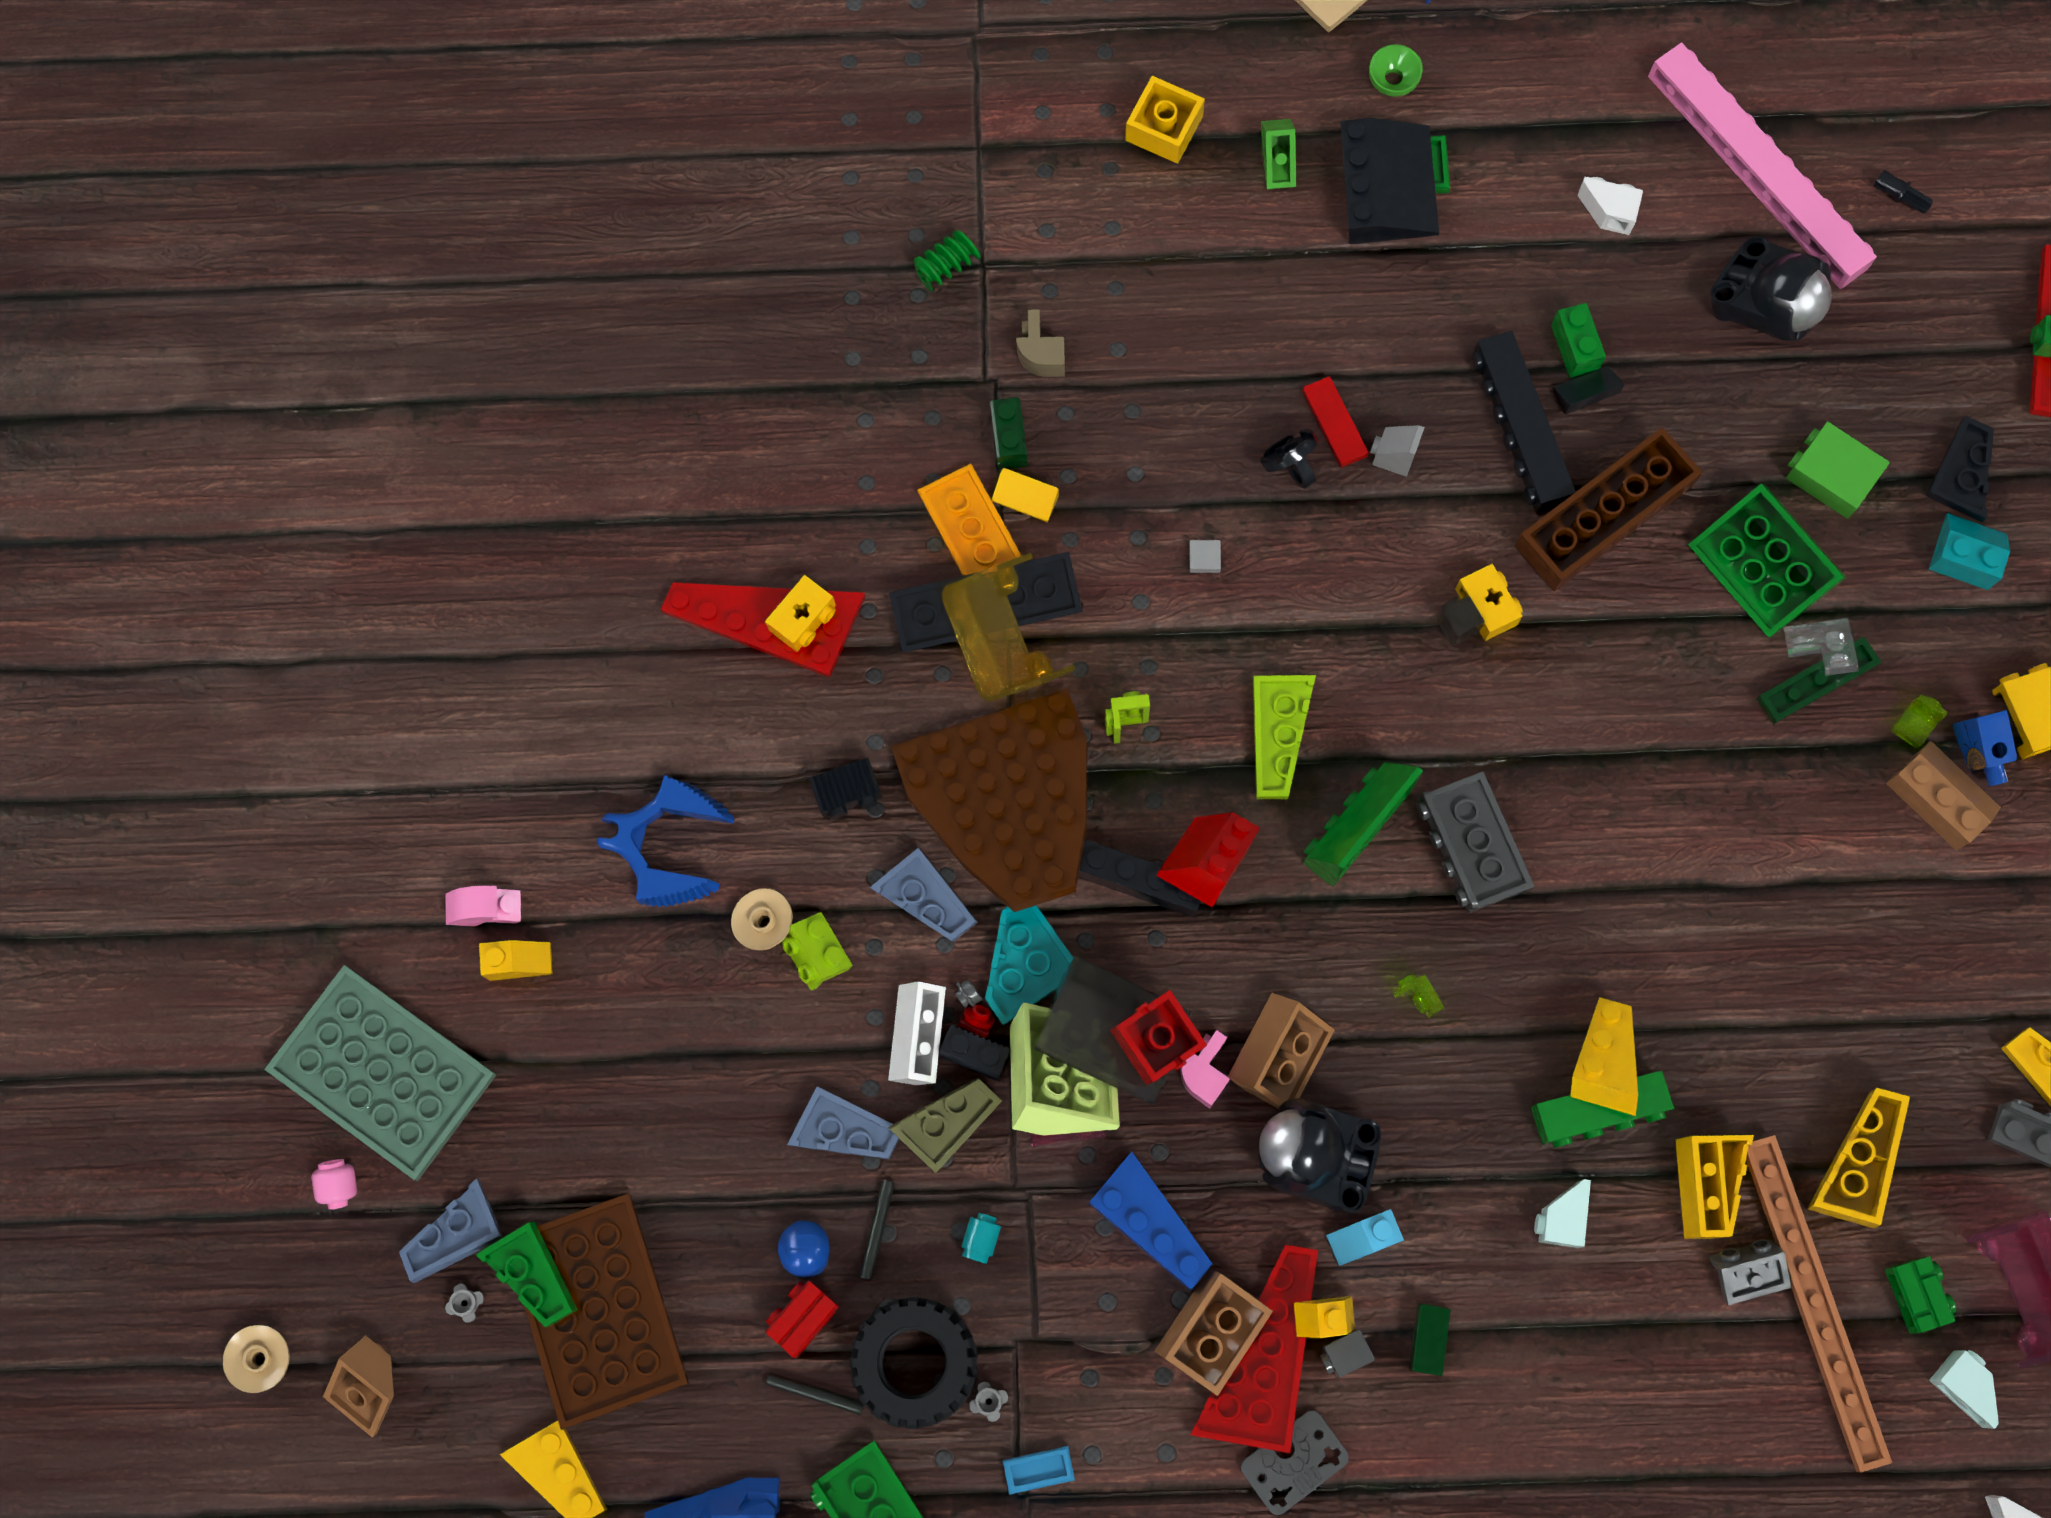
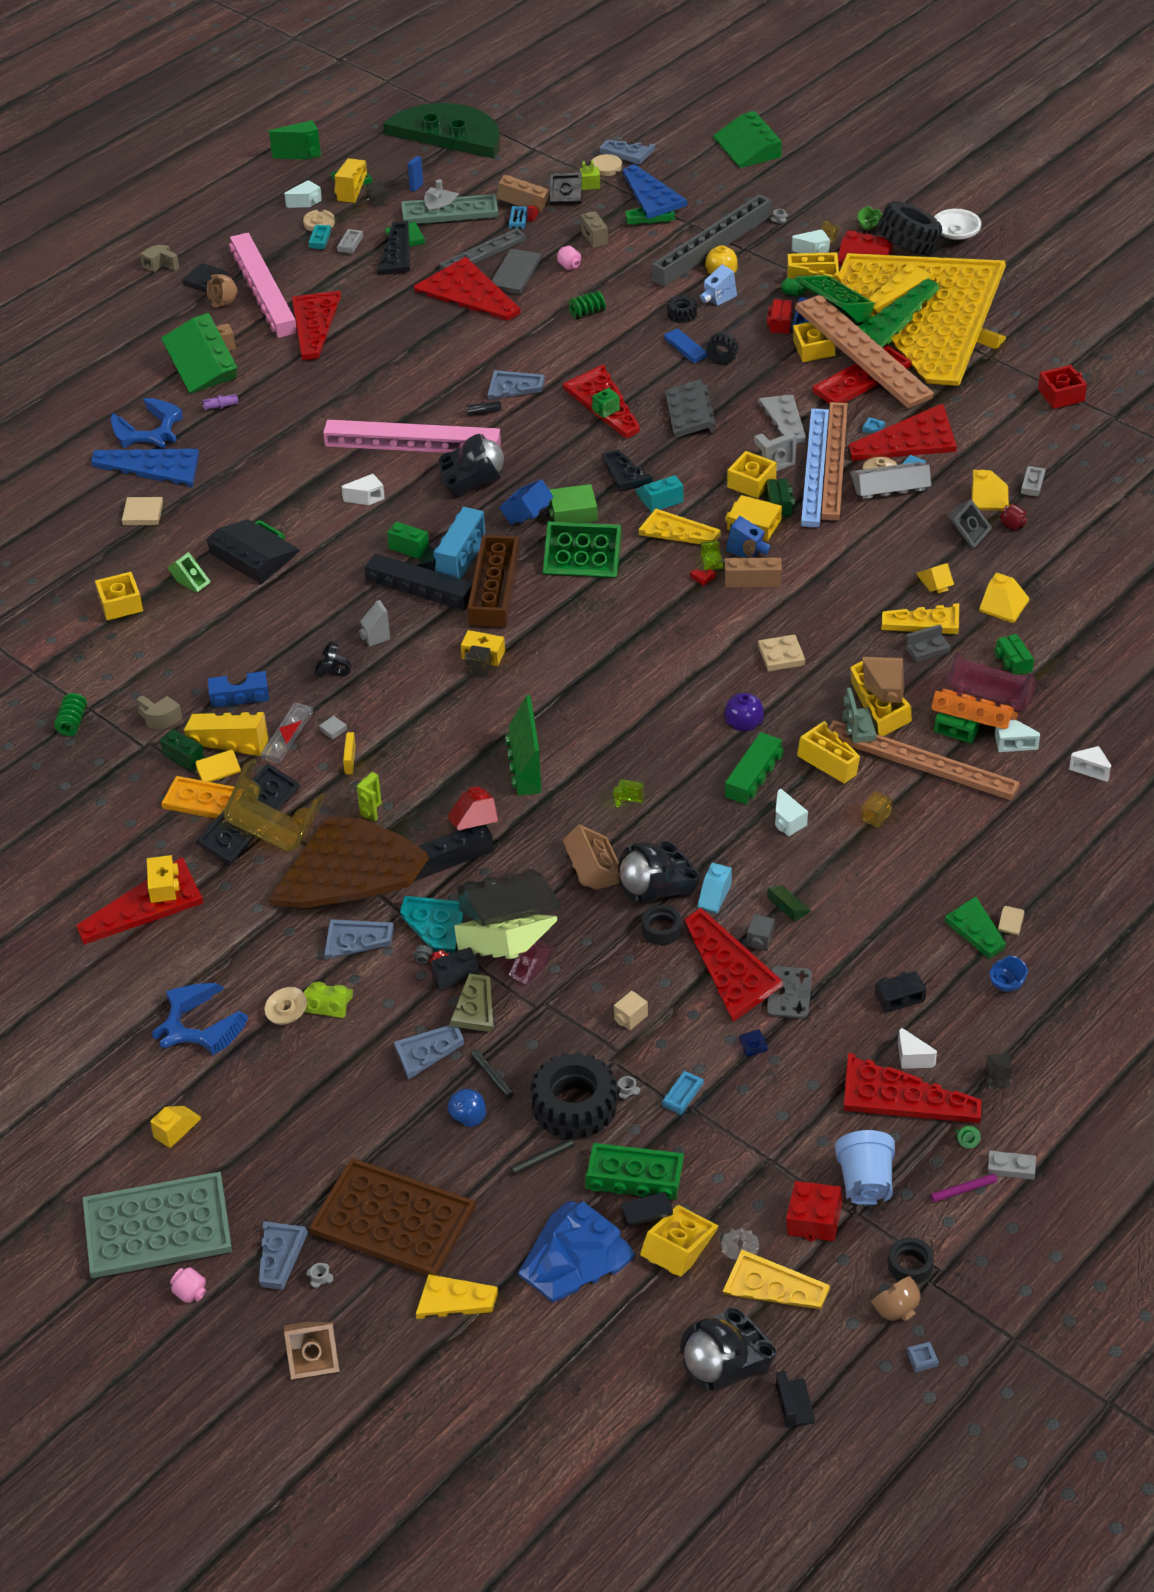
camera: 50 degrees left, 30 degrees down
(241, 1354) = (235, 1381): tan dish -> none
(482, 904) = (127, 1113): bright pink brick -> none
(531, 1273) = (341, 1222): green wing -> none
(801, 1318) = (500, 1131): red brick -> none
(846, 788) = (265, 929): black brick -> none
(917, 1033) = (418, 982): white brick -> none
(980, 1238) = (545, 1031): teal brick -> none
(1077, 456) = (229, 732): none -> yellow wedge
(1094, 1307) = (630, 1010): none -> tan brick
(1145, 1217) = (616, 960): blue wedge -> none
(1149, 513) = (286, 732): none -> clear tile
(1158, 1037) = (533, 872): red brick -> none
(1173, 414) = (251, 691): none -> blue arch
(1179, 618) = (349, 753): none -> yellow tile
(1181, 1487) = (753, 1042): none -> clear blue plate
(1200, 1077) = (571, 894): bright pink brick -> none
(1213, 1331) = (692, 970): medium nougat slope -> none
(1279, 723) = (442, 754): lime wing -> none
(1279, 1218) = (658, 936): none -> black tyre
(1324, 1317) = (733, 921): yellow slope -> none
(1335, 422) = (347, 645): red tile -> none
(1398, 60) = (206, 509): bright green piece -> none
(1474, 842) = (582, 727): dark grey bracket -> none
(1607, 1060) = (736, 741): yellow wedge -> none
(1624, 413) = (460, 543): none -> dark azure brick
(1677, 1319) = (876, 809): none -> clear yellow brick
(1685, 1010) = (744, 712): none -> dark purple cylinder
(1751, 1271) = (885, 770): dark grey bracket -> none
(1777, 418) = (526, 502): none -> blue brick
(1795, 1178) = (858, 721): none -> sand green bracket
(1813, 684) = (654, 573): dark green plate -> none
(1829, 638) = (642, 553): clear plate -> none
(1836, 960) = (781, 652): none -> tan plate
(1876, 740) = (703, 577): none -> red tile
(1881, 1169) = (884, 678): none -> medium nougat slope
(1926, 633) = (673, 527): none -> yellow wing
(1962, 1303) = (970, 709): none -> orange bracket
(1985, 185) = (514, 384): none -> sand blue wing

